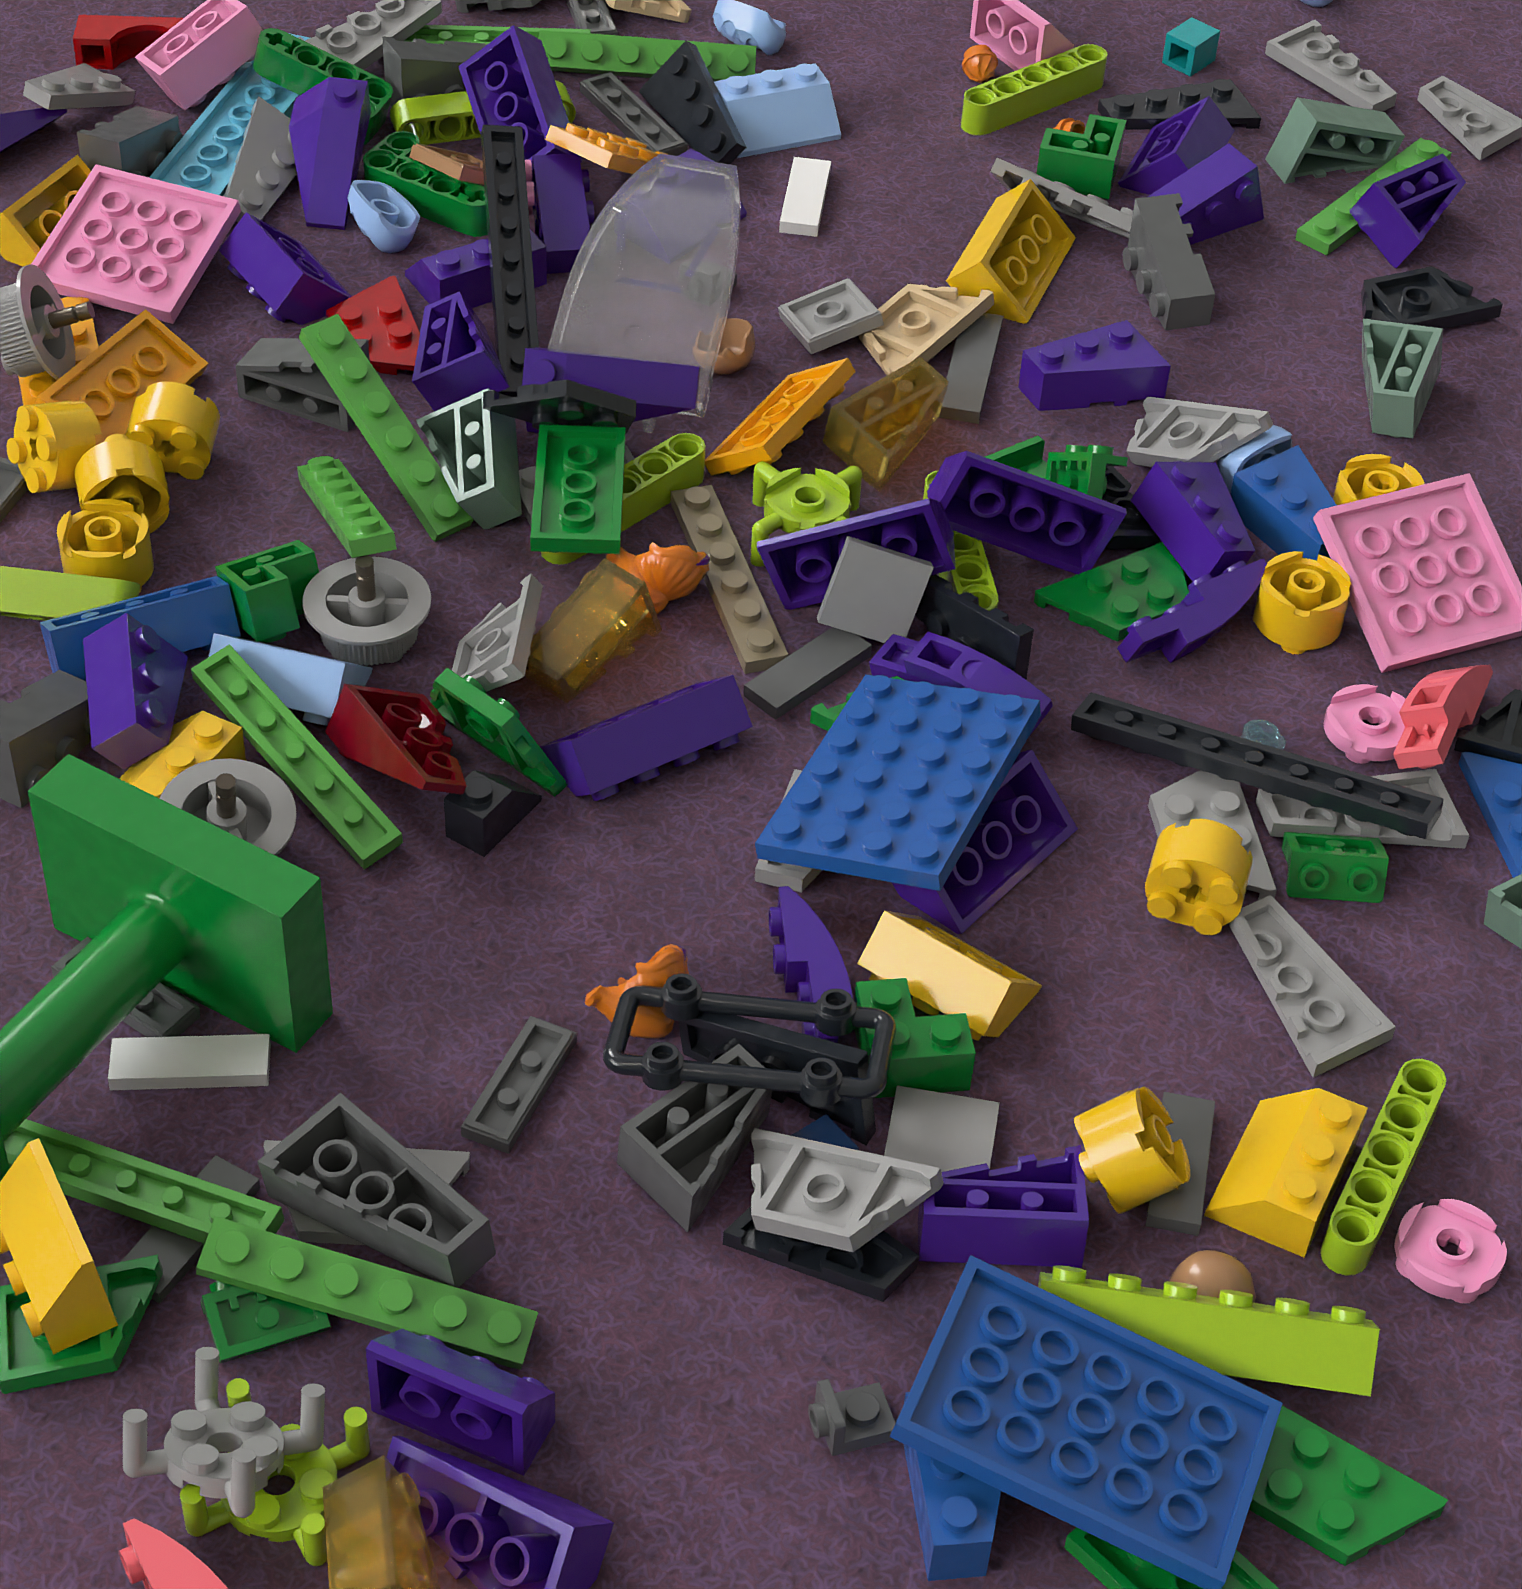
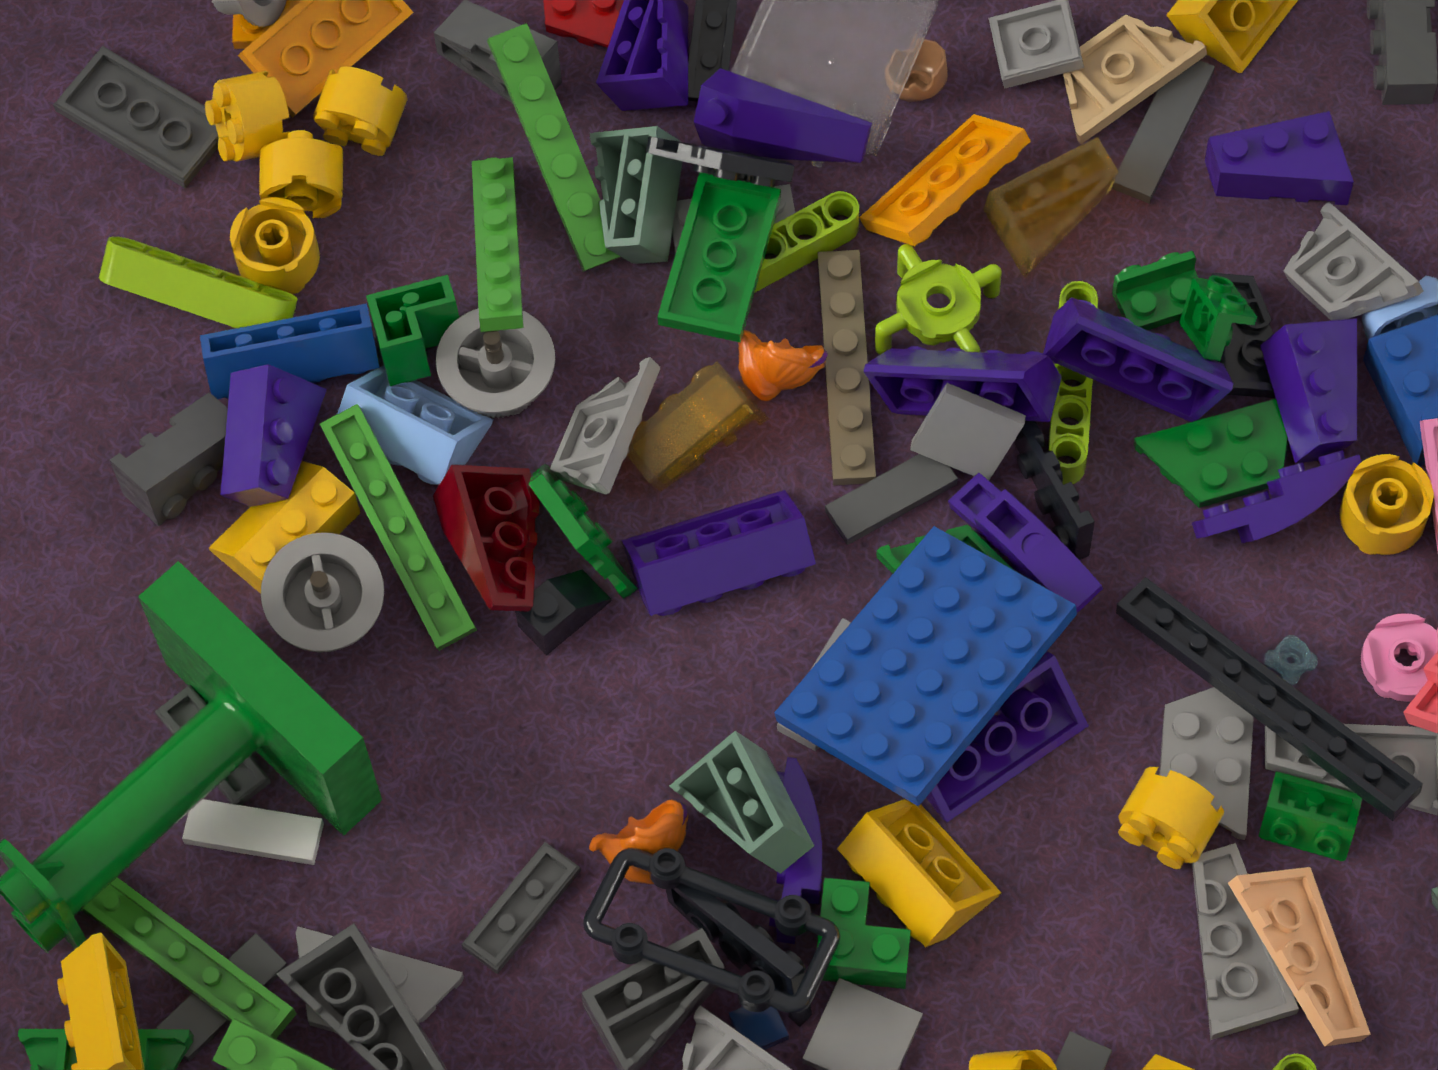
camera: 20 degrees right, 20 degrees up
(748, 926) = (747, 801): none -> sand green wedge
(1380, 974) = (1301, 941): none -> light nougat wing

